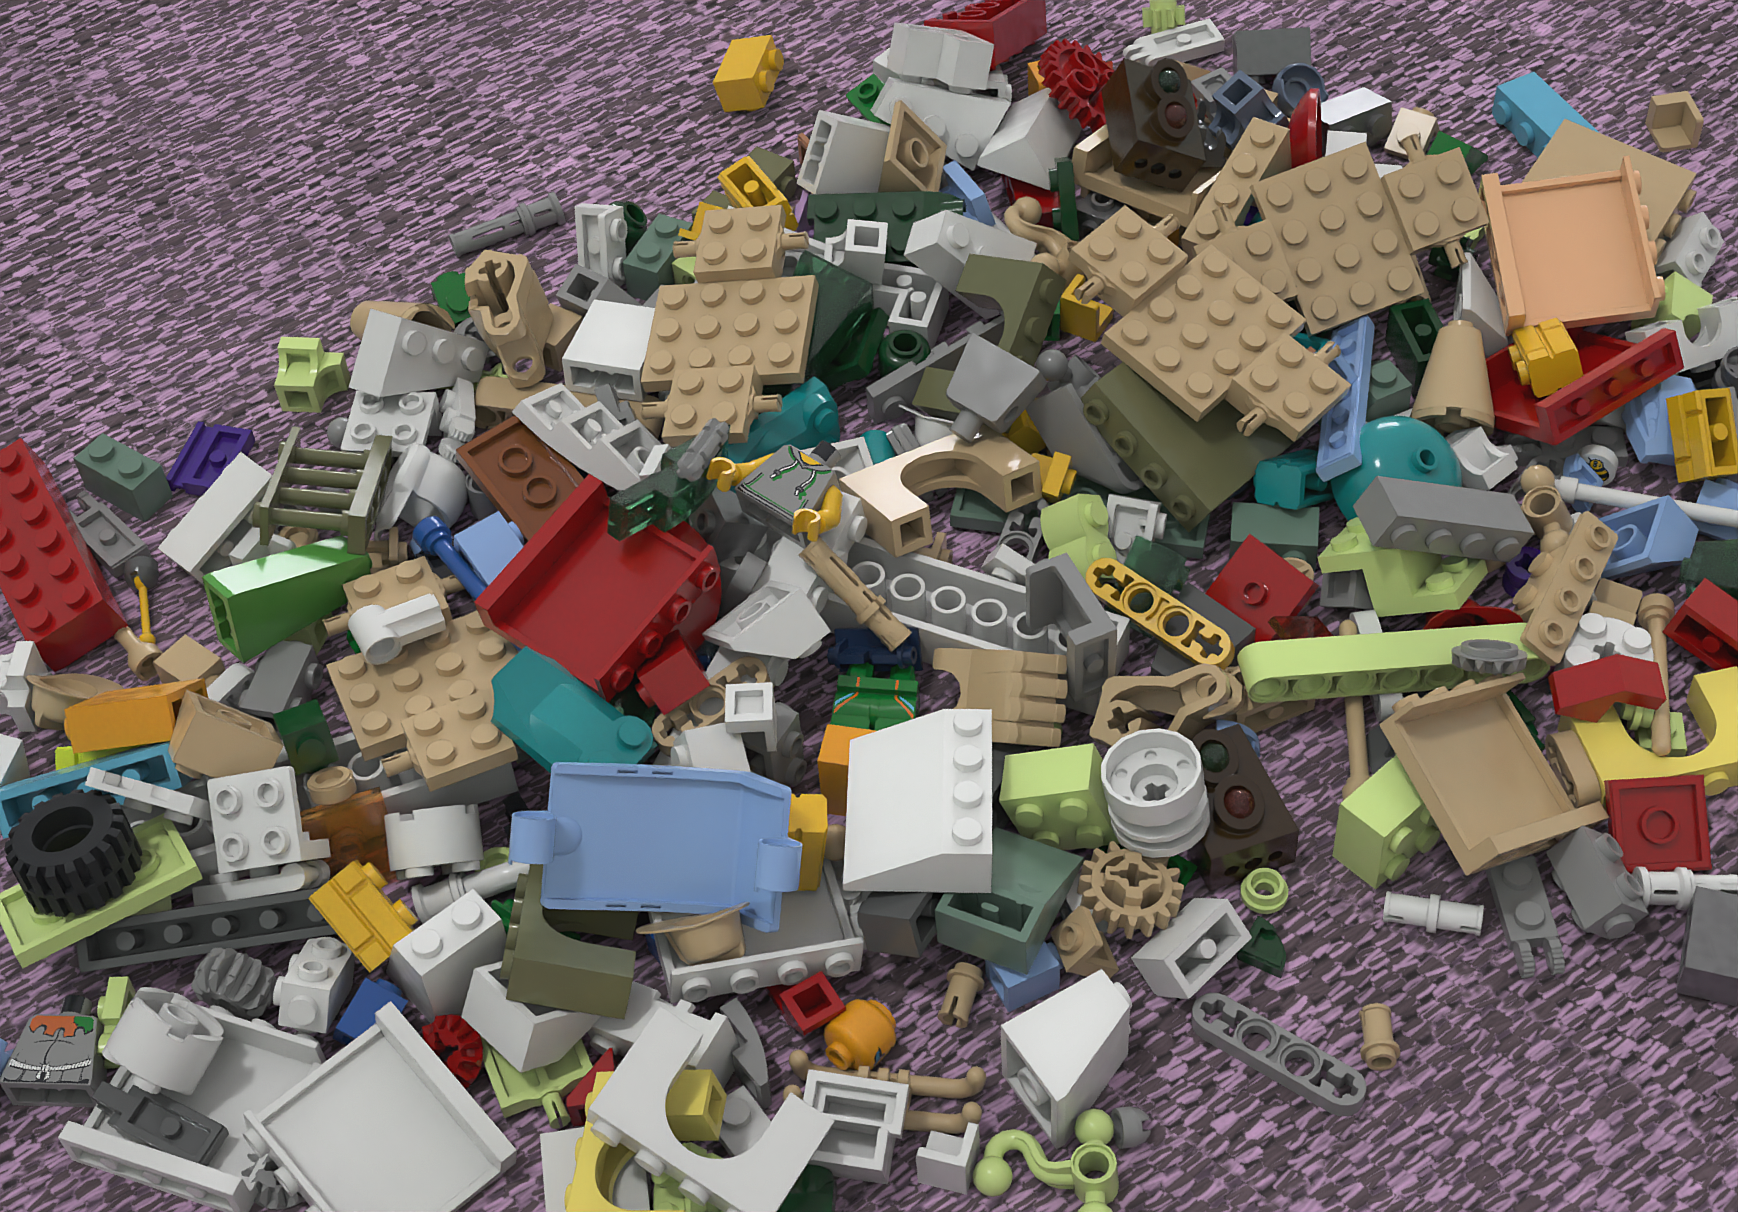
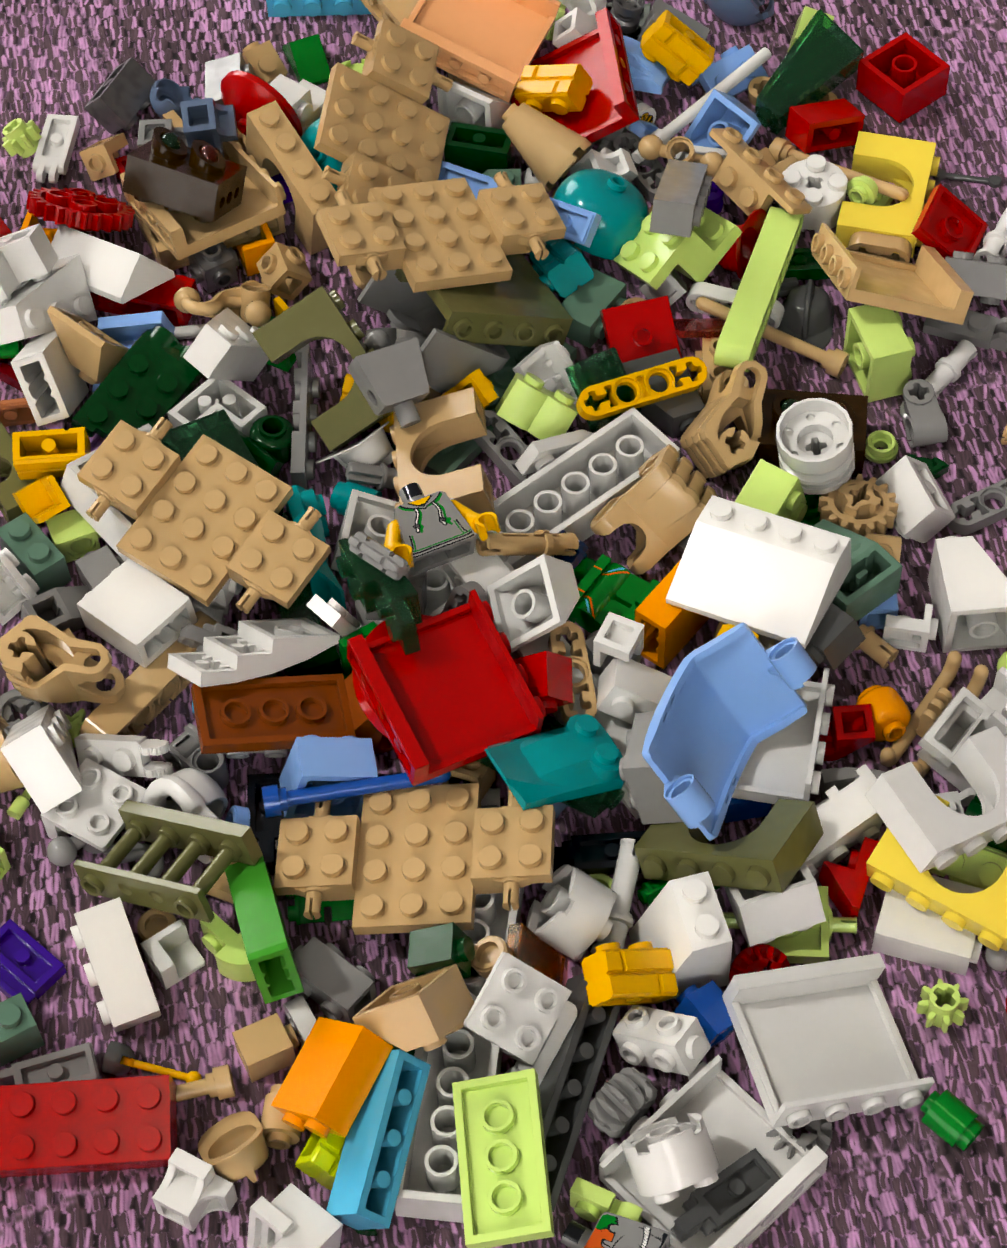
camera: 65 degrees left, 5 degrees up
(73, 852) = (461, 1123): black tyre -> none
(143, 796) = (450, 1075): white wing -> none
(384, 632) = (367, 855): white piece -> none
(704, 936) = (778, 754): tan piece -> none
(860, 249) = (174, 399): white brick -> none
(992, 1013) = (910, 633): none -> white bracket
(1062, 181) = (198, 268): dark green hinge -> none
(1063, 598) = (643, 423): light grey panel -> none
(1335, 910) = (922, 414): none -> light grey piece
(1489, 656) = (805, 230): light grey gear -> none
(1594, 686) = (849, 193): red slope -> none

